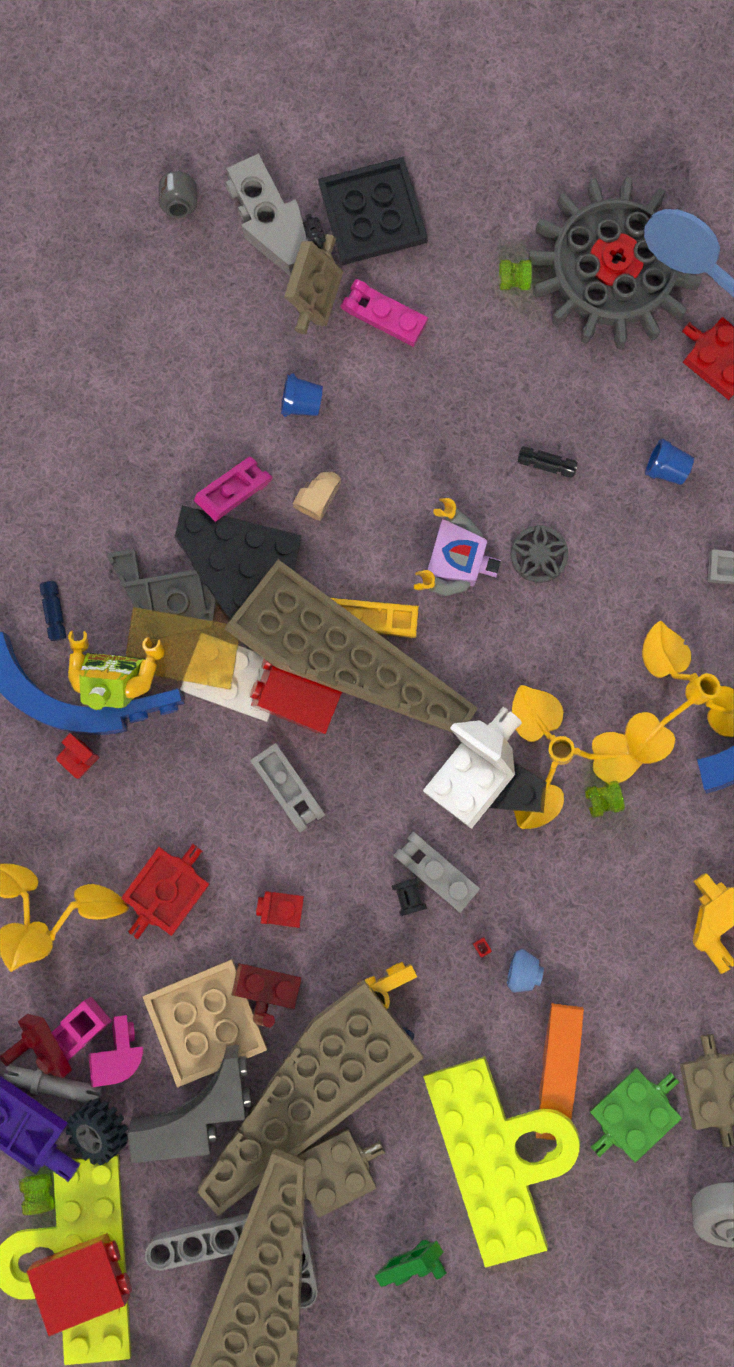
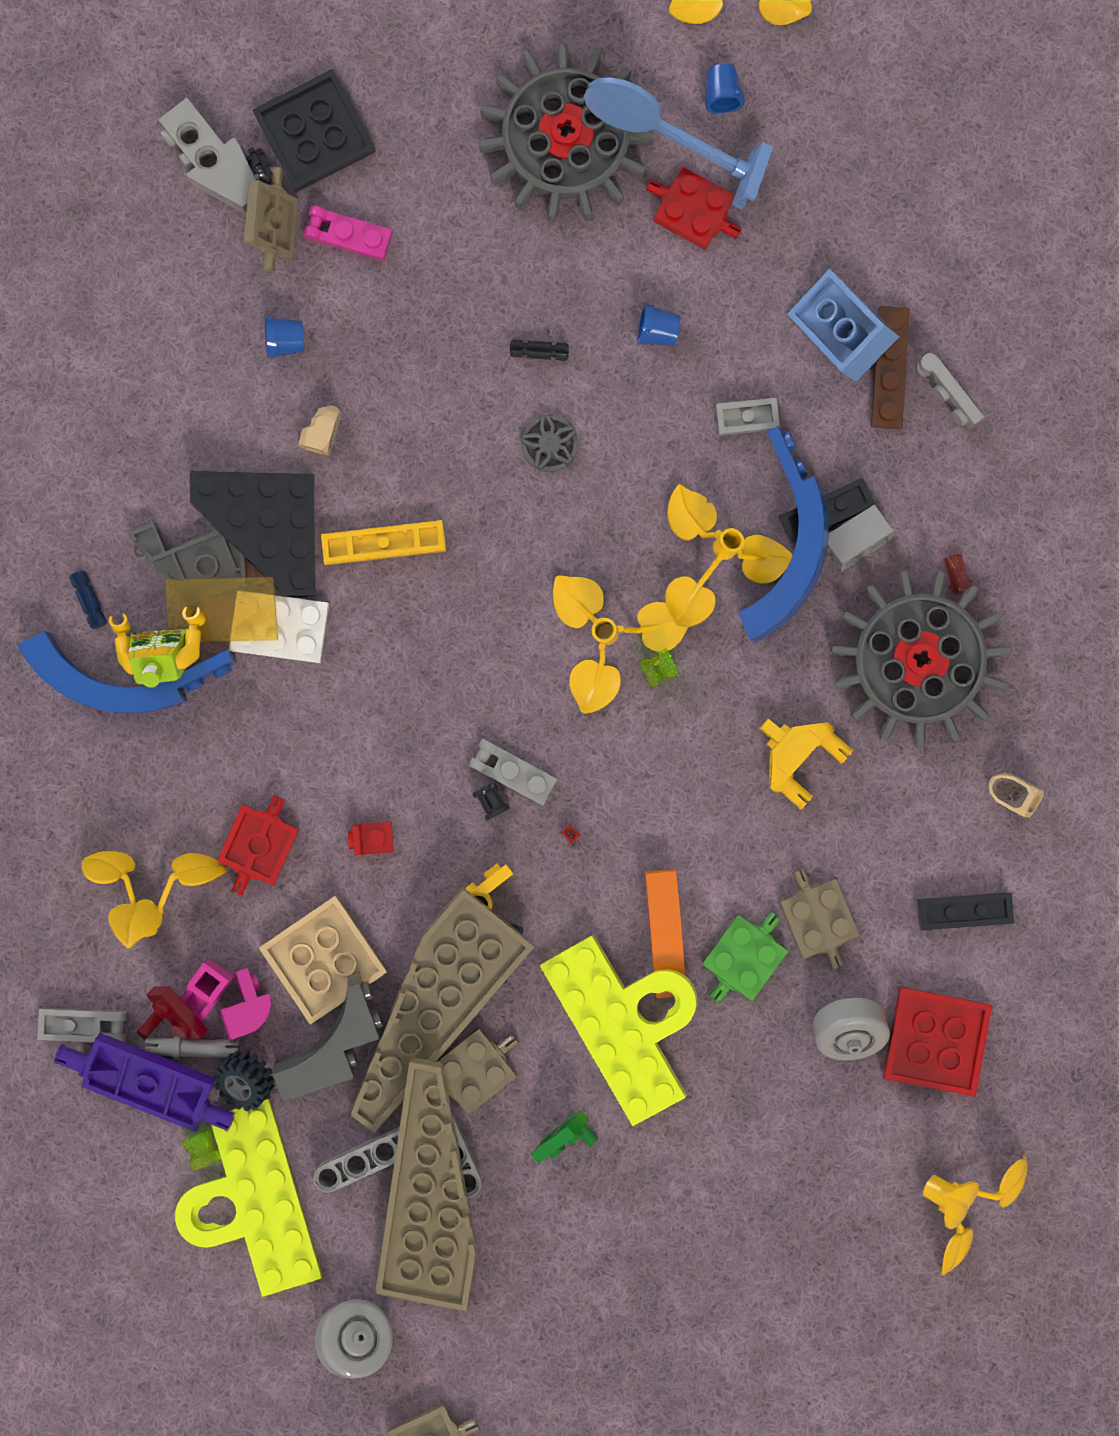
camera: 15 degrees left, 5 degrees up
(76, 756) = (144, 735): red bracket -> none
(79, 1284) = (259, 1219): red brick -> none
(177, 194) = (115, 155): dark grey head -> none
(232, 488) = (236, 443): dark pink plate -> none
(265, 988) = (373, 915): dark red plate -> none
(286, 786) = (352, 721): light grey plate -> none
(294, 698) = (342, 626): red brick -> none
(321, 641) = (357, 576): dark tan wing -> none
(456, 554) = (468, 462): torso -> none
(476, 768) = (530, 665): white plate -> none
(522, 274) = (476, 167): clear neon green wheel -> none
(522, 793) = (565, 674): black wing -> none
(524, 972) = (614, 848): medium blue cone -> none

